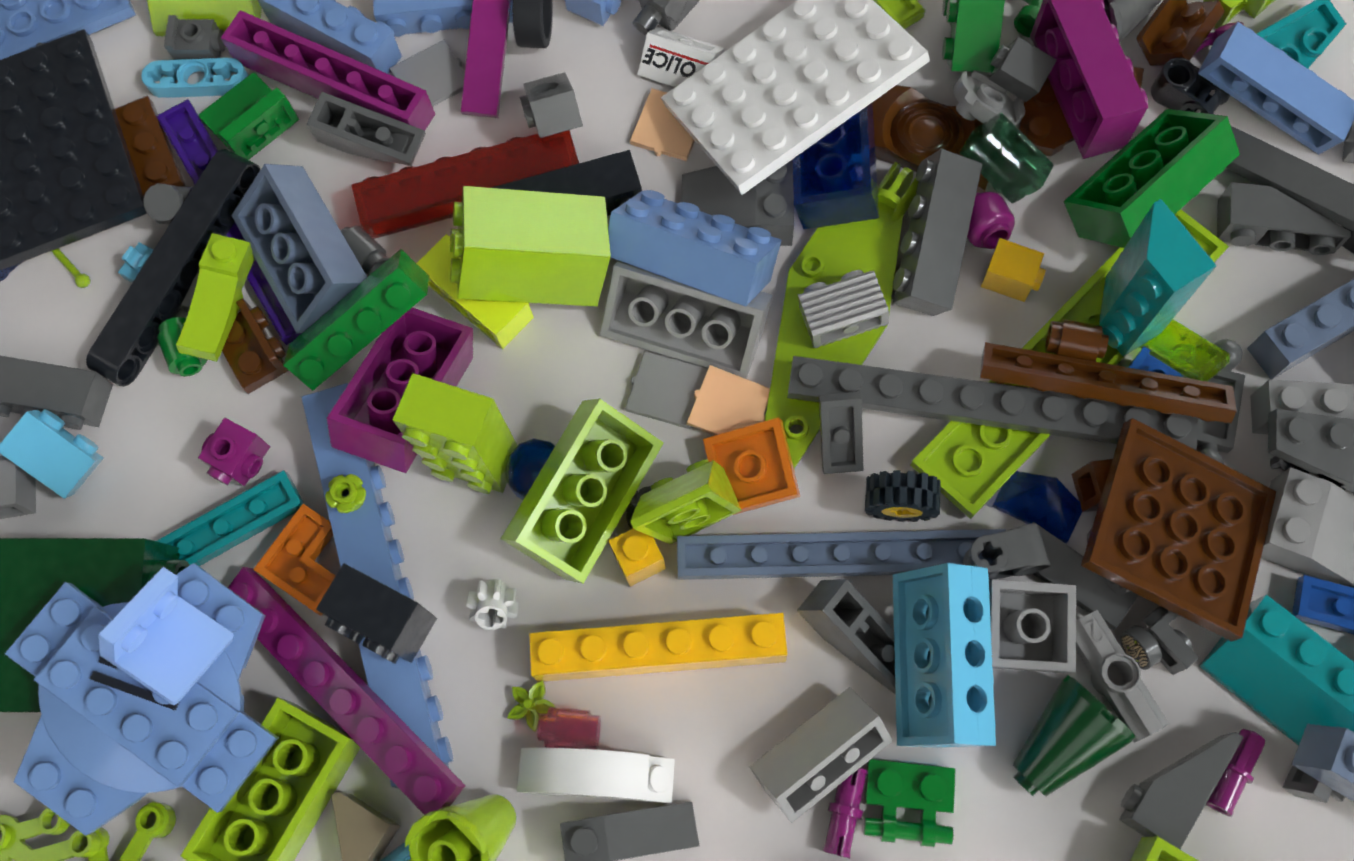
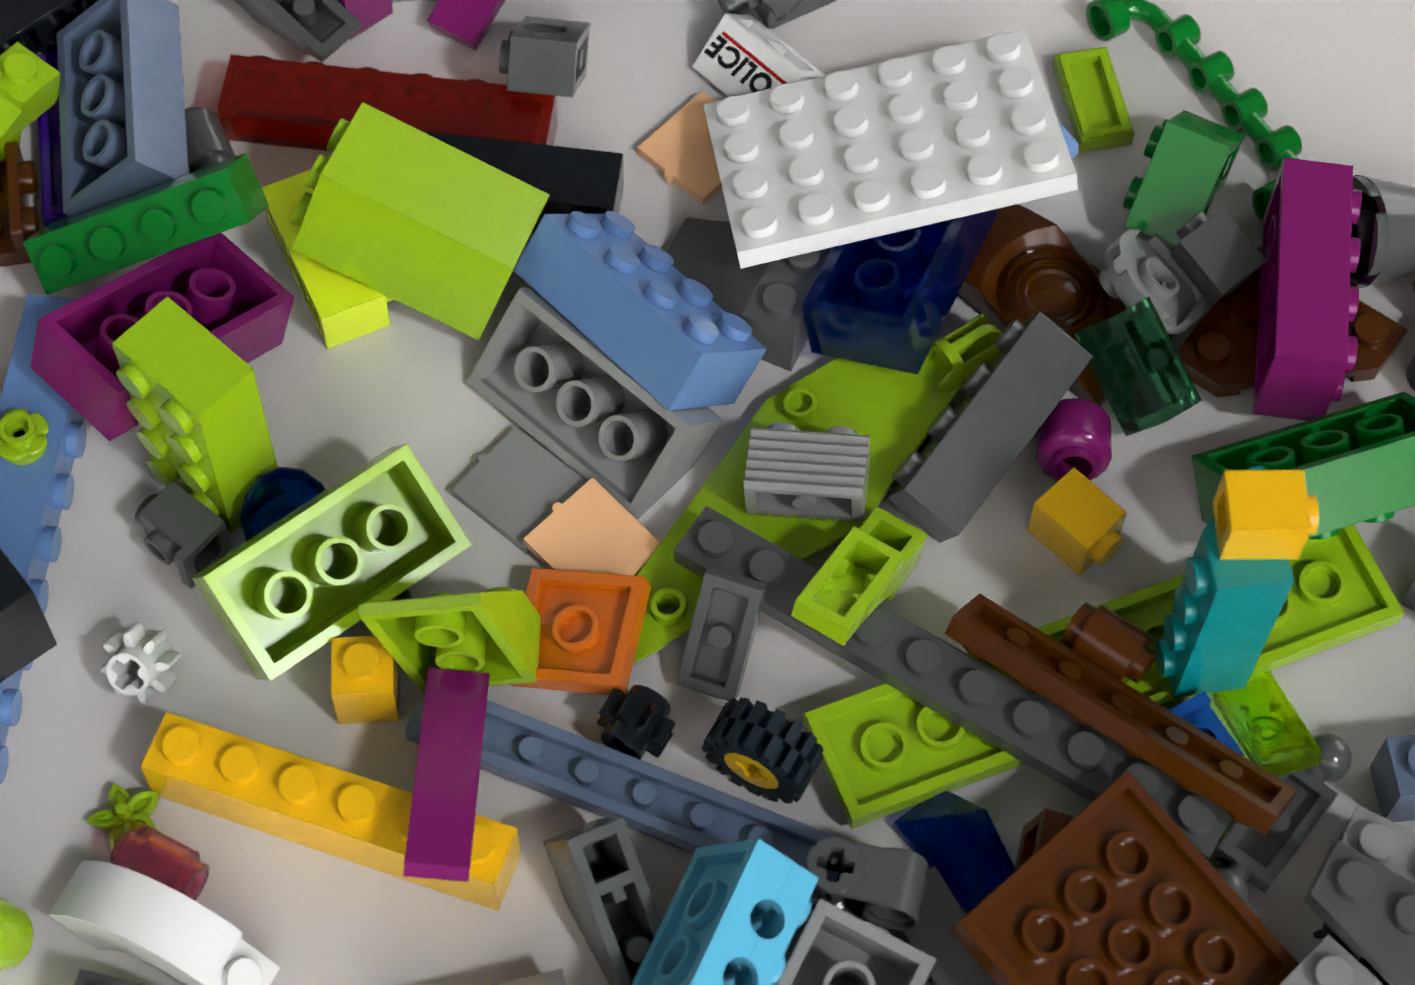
camera: 15 degrees right, 10 degrees down
(475, 508) = (182, 531): none -> dark grey brick
(726, 600) = (447, 775): none -> magenta tile
(815, 510) = (636, 722): none -> black gear
(910, 362) = (860, 575): none -> lime slope
(1186, 232) = (1263, 514): none -> yellow brick

